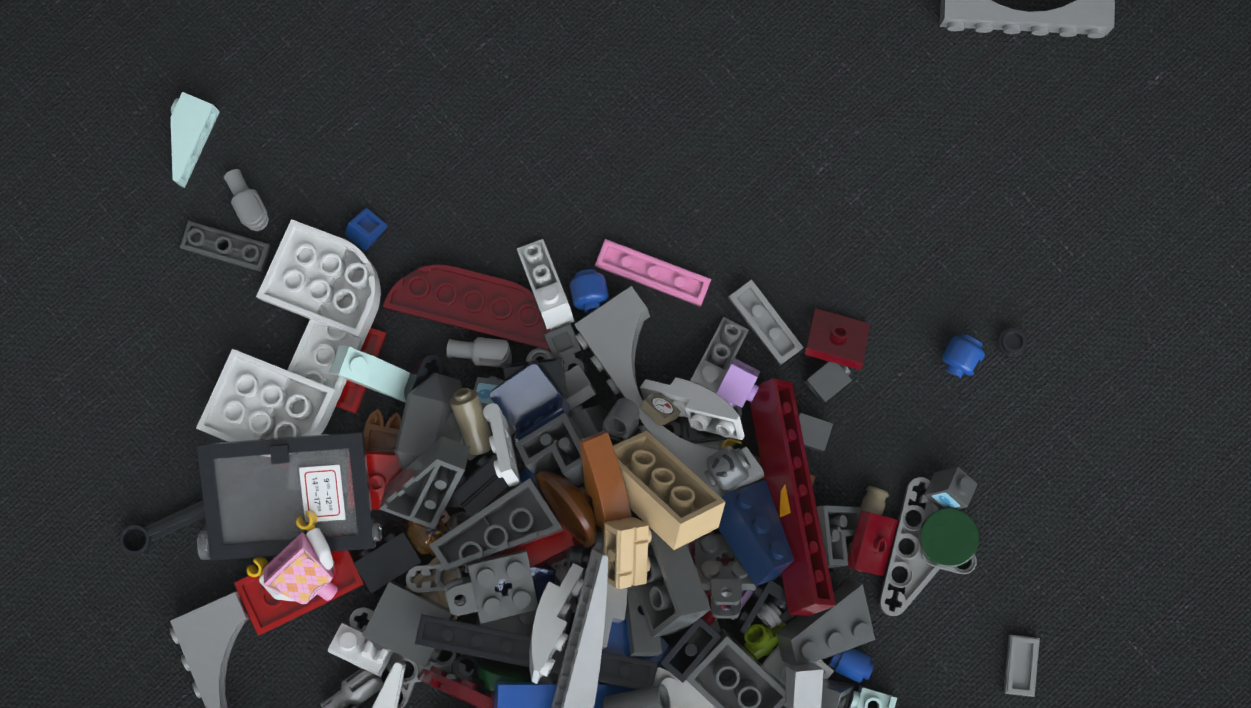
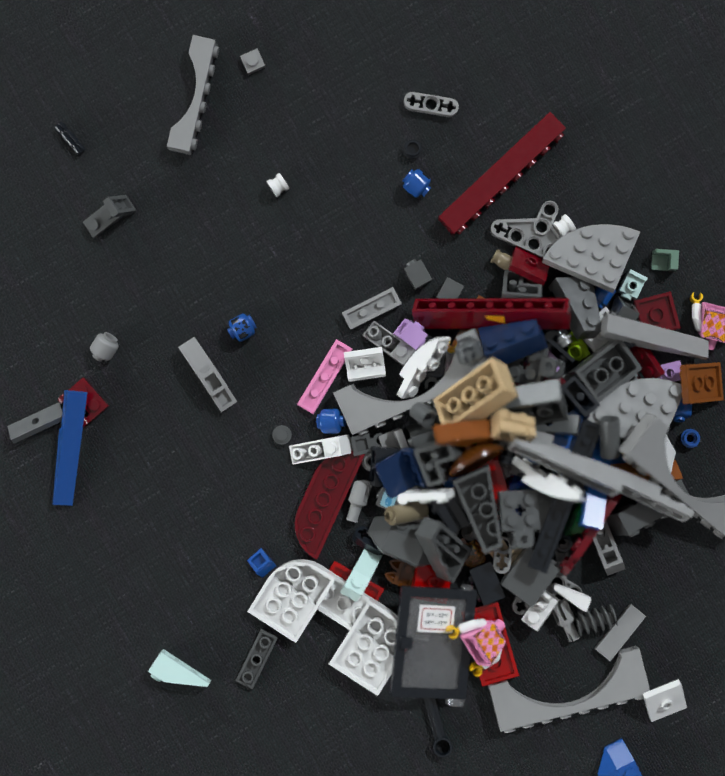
camera: 85 degrees left, 5 degrees up
(246, 202) = (230, 639): light grey arm -> none
(557, 225) = (282, 434): none -> dark grey plate
(625, 102) = (207, 374): none -> light grey slope
(660, 409) = (420, 388): dark tan tile -> none
(682, 326) = (365, 364): none -> white bracket
(702, 139) = (241, 327): none -> blue head
(837, 339) = (391, 263): dark red plate -> none
(909, 638) = (594, 254): none -> light grey plate
(920, 155) = (278, 185): none -> white wheel
(942, 587) = (564, 225): none -> white wheel
(948, 537) = (534, 216): dark green tile -> none
(951, 489) = (503, 208): dark grey brick -> none
(1003, 480) = (505, 170): none -> dark red brick
(1021, 665) = (622, 185): light grey tile -> none
(1076, 336) = (437, 99): none -> light grey beam
(1093, 89) = (252, 61): none -> light grey plate

